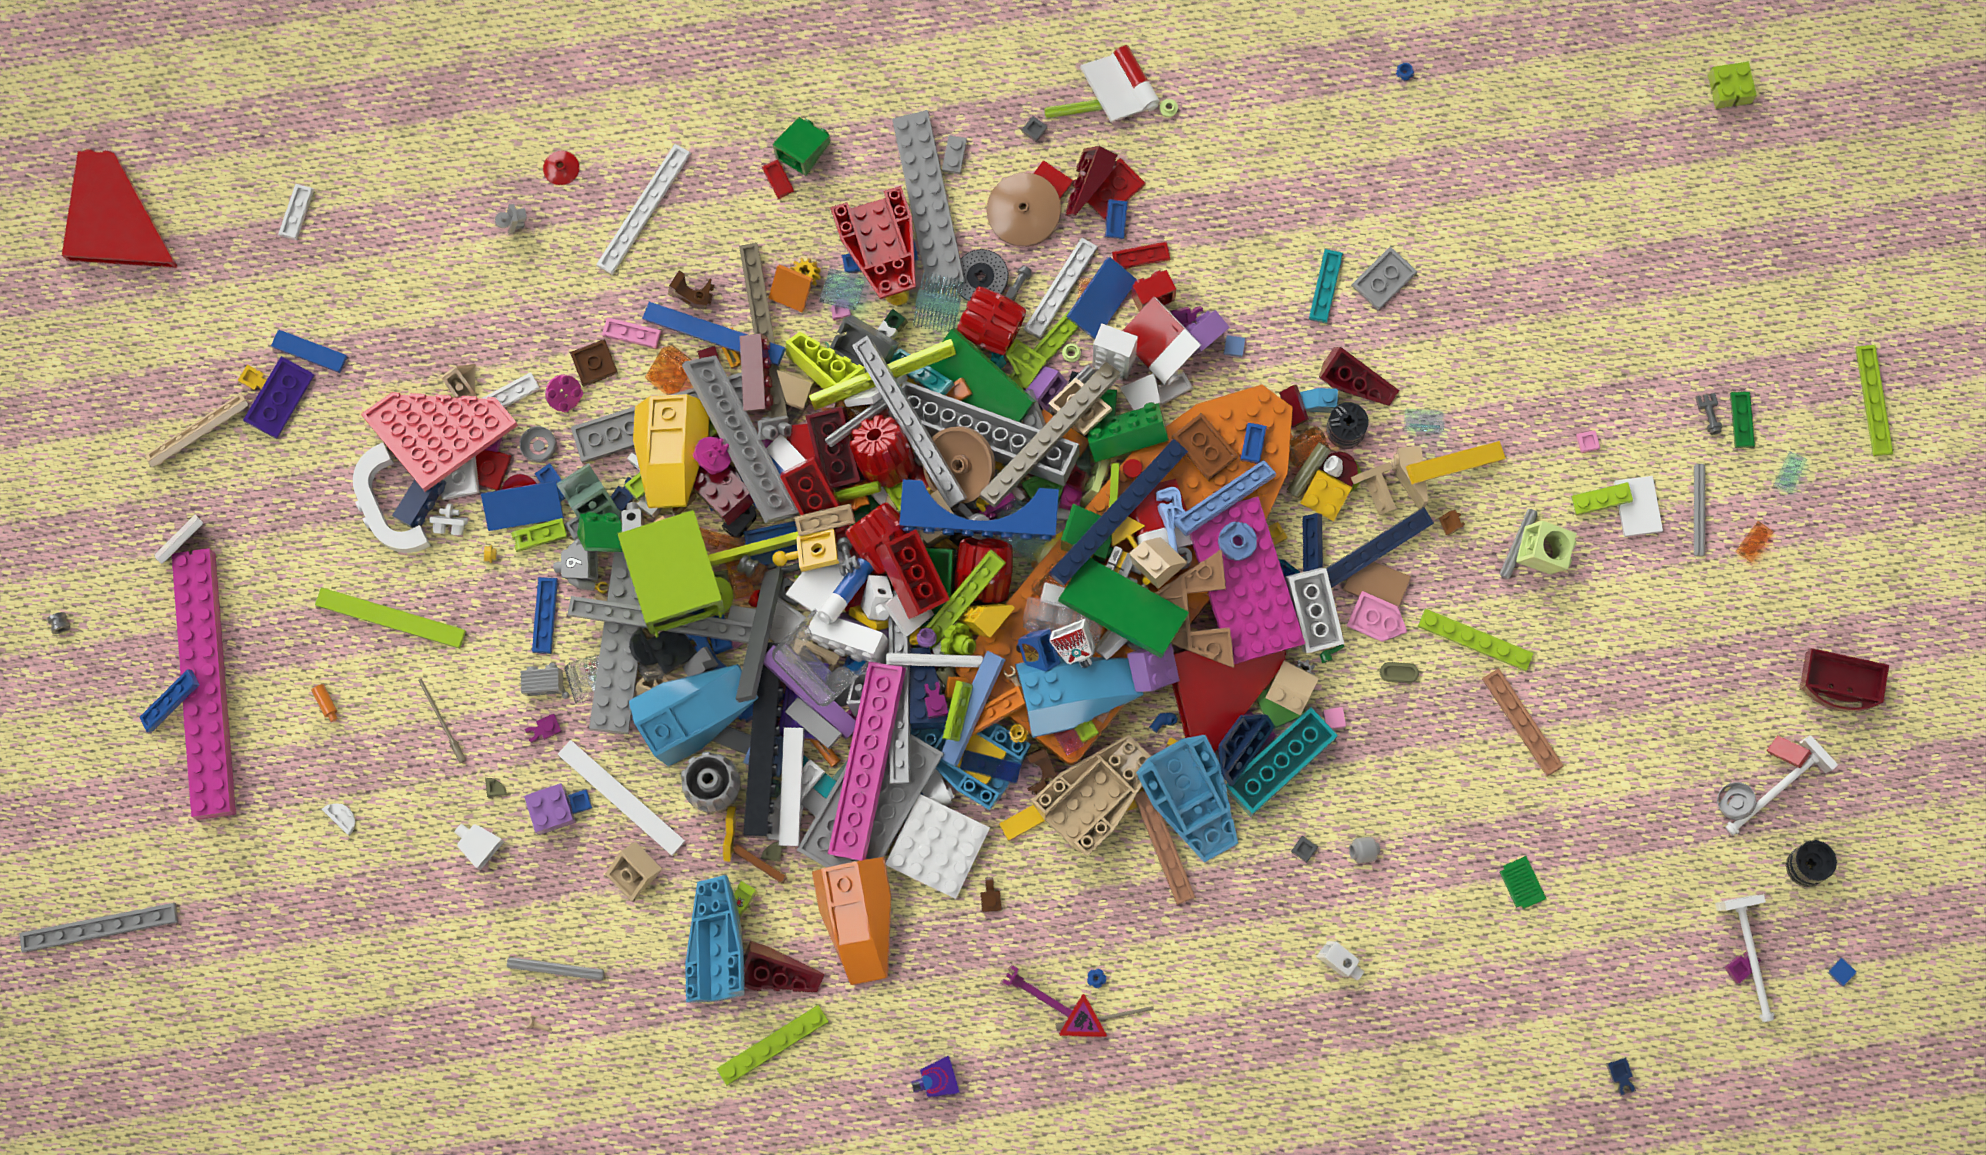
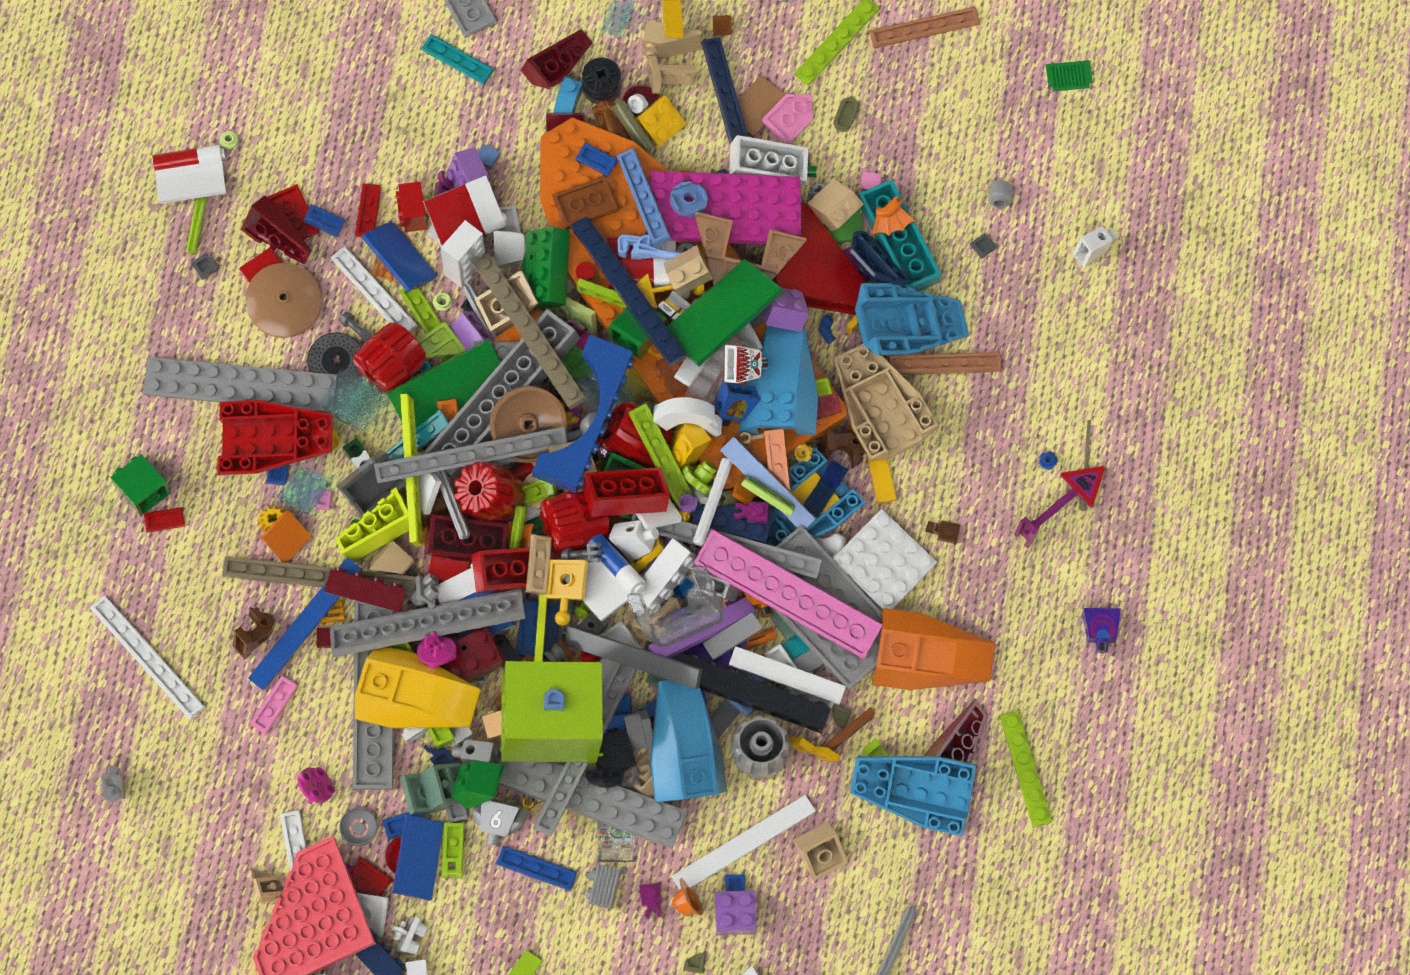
camera: 80 degrees left, 5 degrees down
(489, 553) = (457, 903): yellow plate -> none
(549, 761) = (687, 901): none -> orange piece
(561, 175) = (75, 735): red dish -> none
(593, 362) = (291, 750): reddish brown tile -> none
(667, 370) = (328, 677): clear orange bracket -> none
(668, 566) = (554, 700): none -> medium blue tile
(954, 154) = (201, 347): light grey plate -> none
(1009, 607) = (687, 410): none -> white arch
(1294, 746) = (891, 218): none -> orange arm
(1312, 542) = (701, 147): dark blue plate -> none
(1620, 1072) = (1260, 50): dark blue plate -> none

